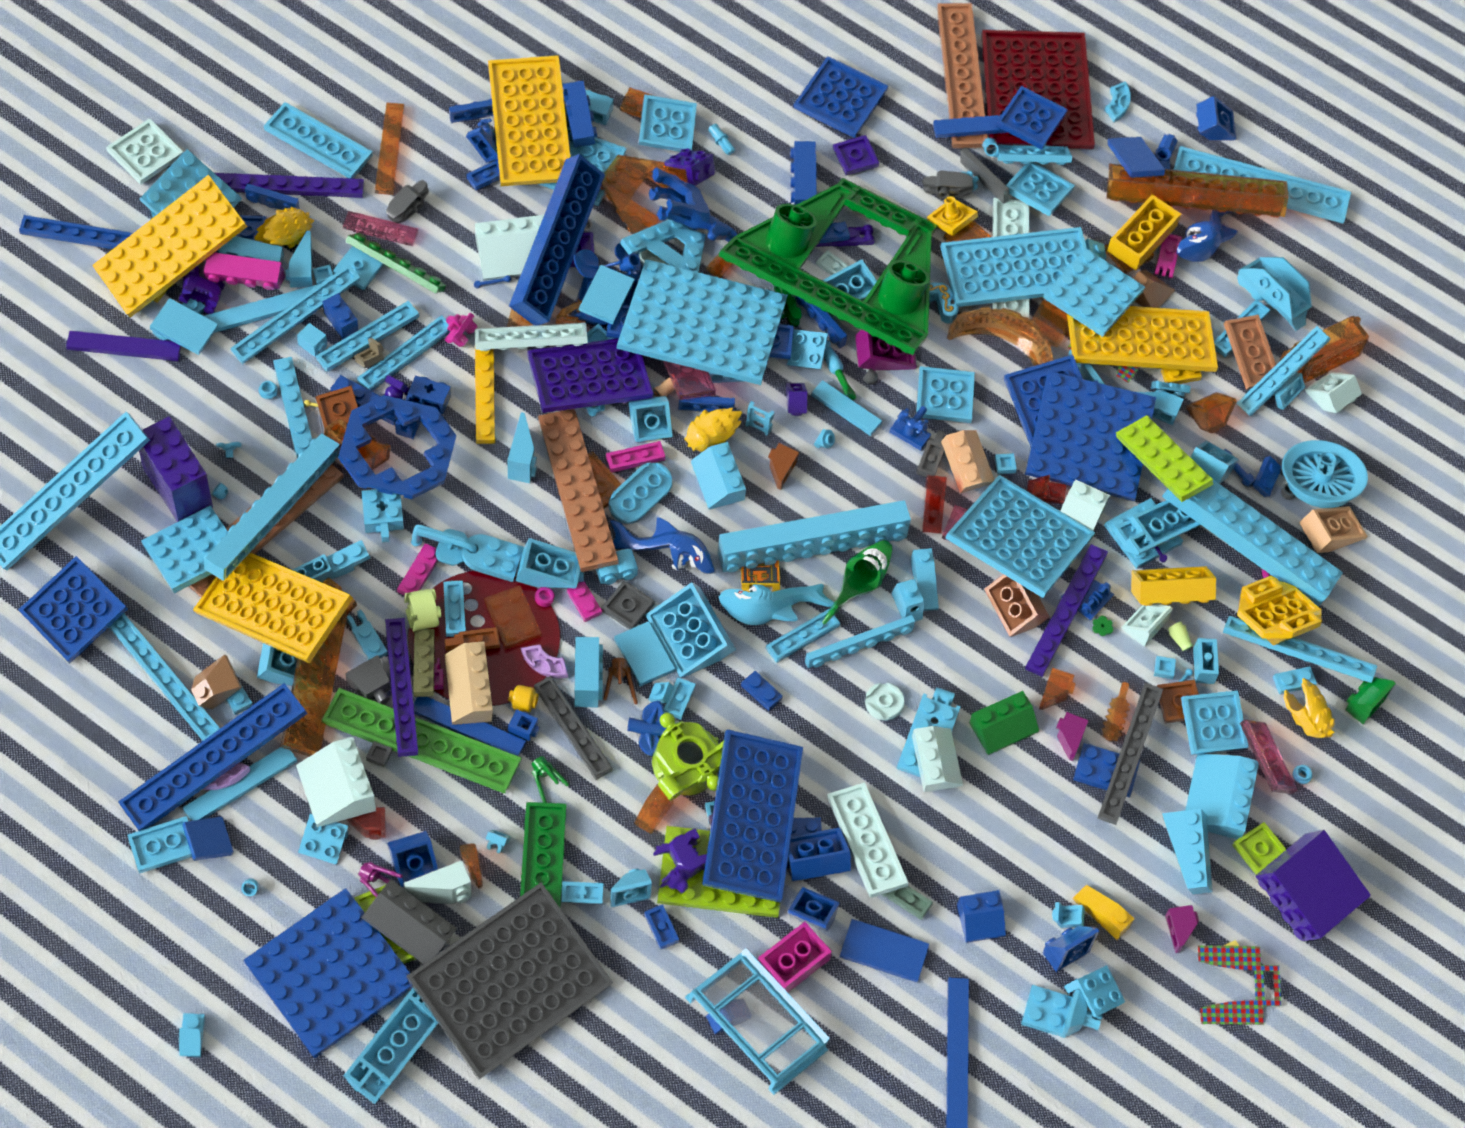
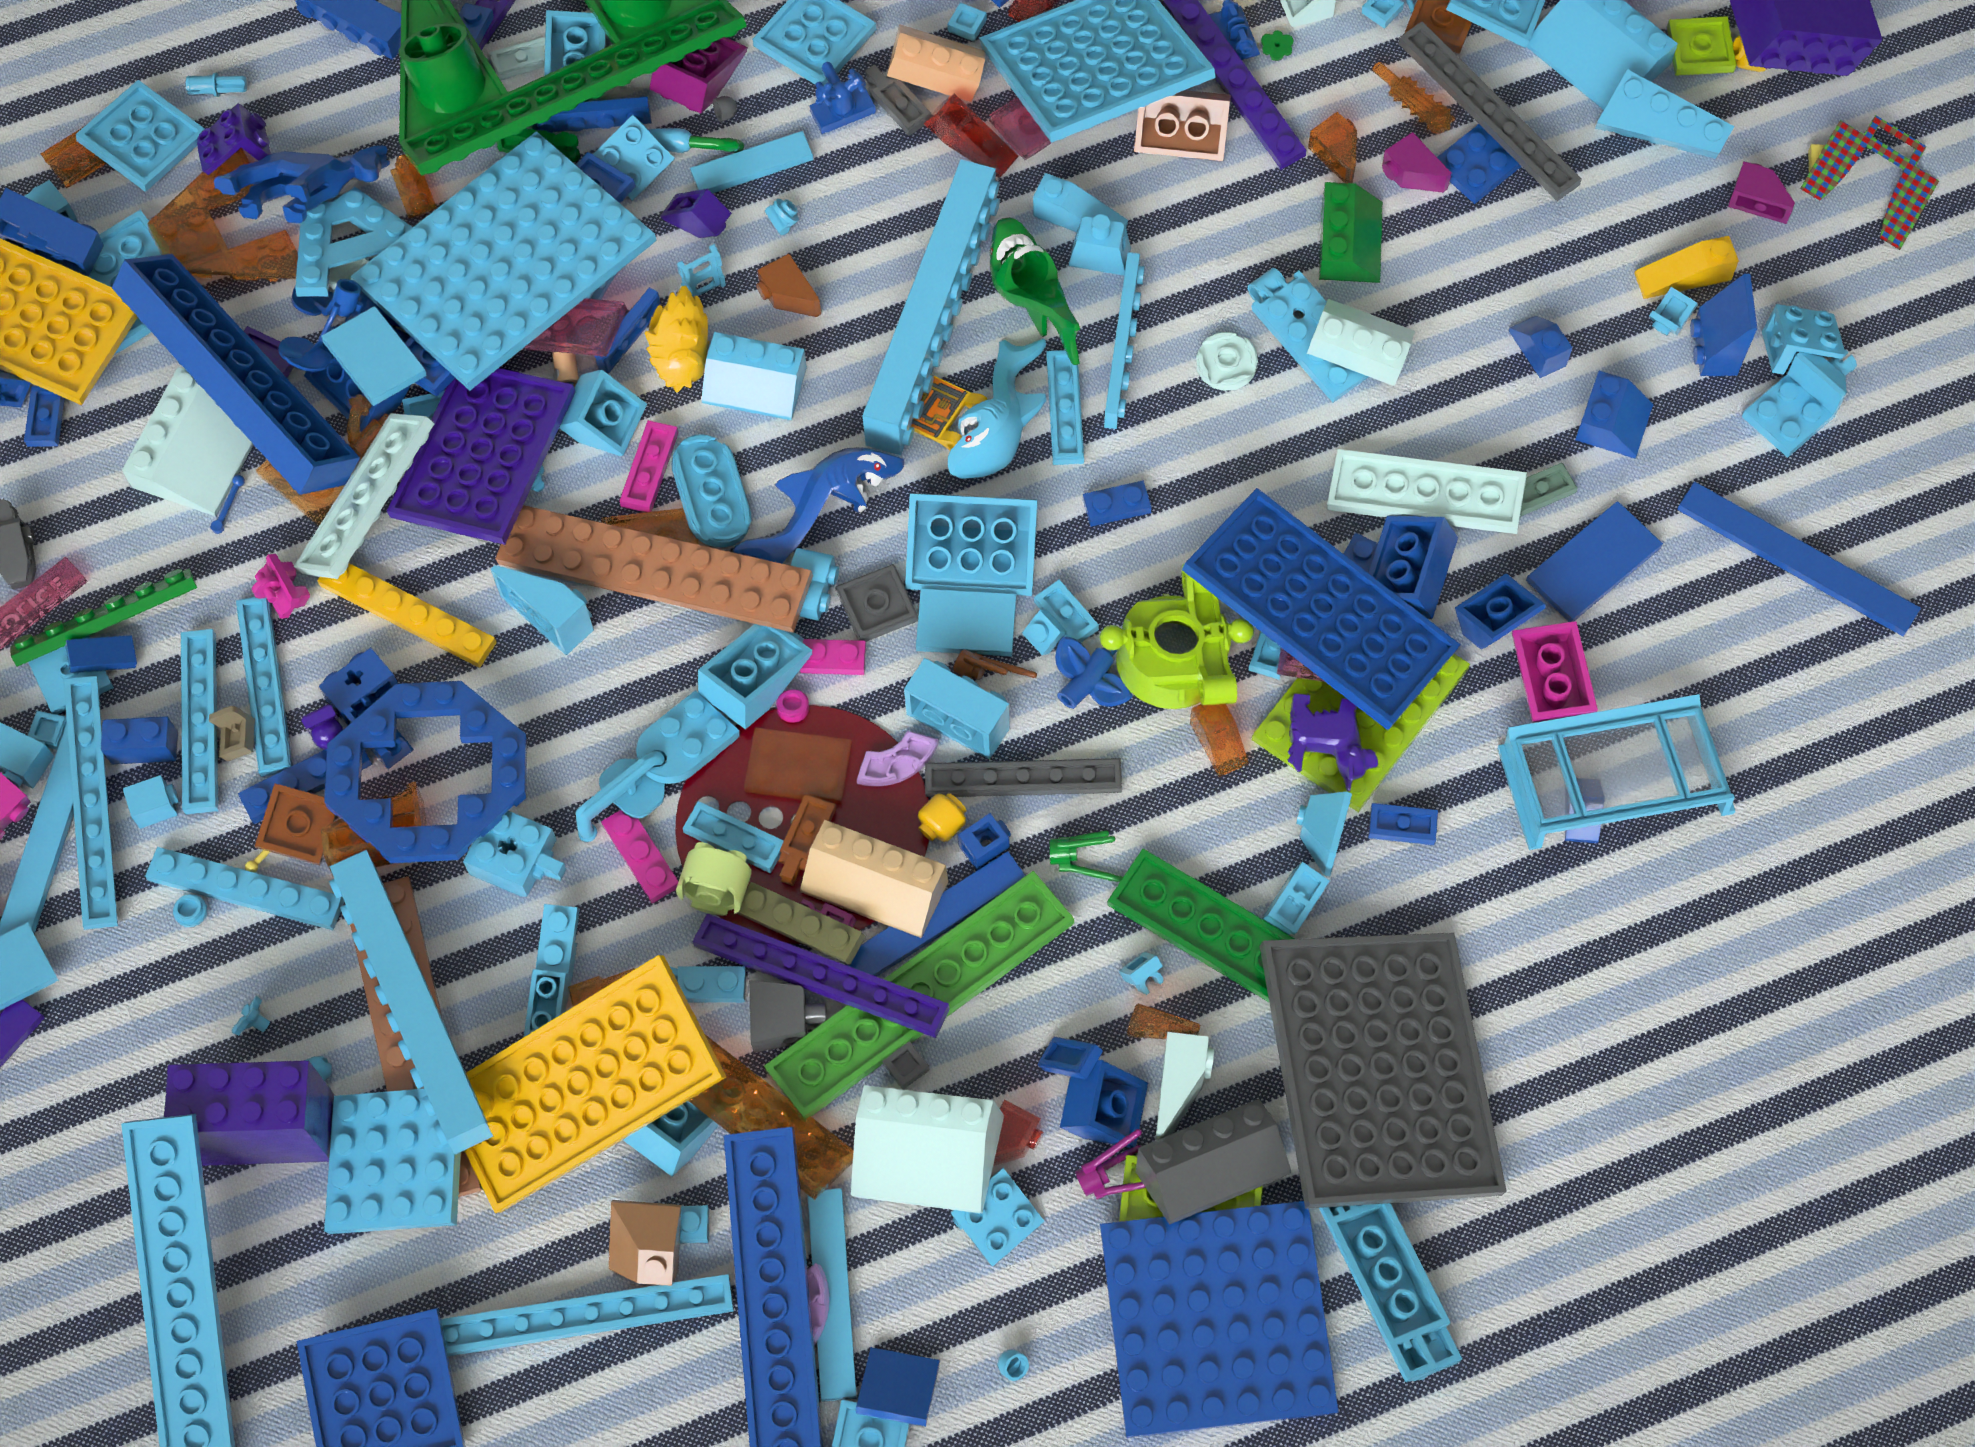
camera: 50 degrees left, 5 degrees up
(375, 273) = (101, 654): none -> blue tile
(426, 826) = (1070, 1057): none -> blue tile
(1001, 856) = (1542, 344): none -> blue slope

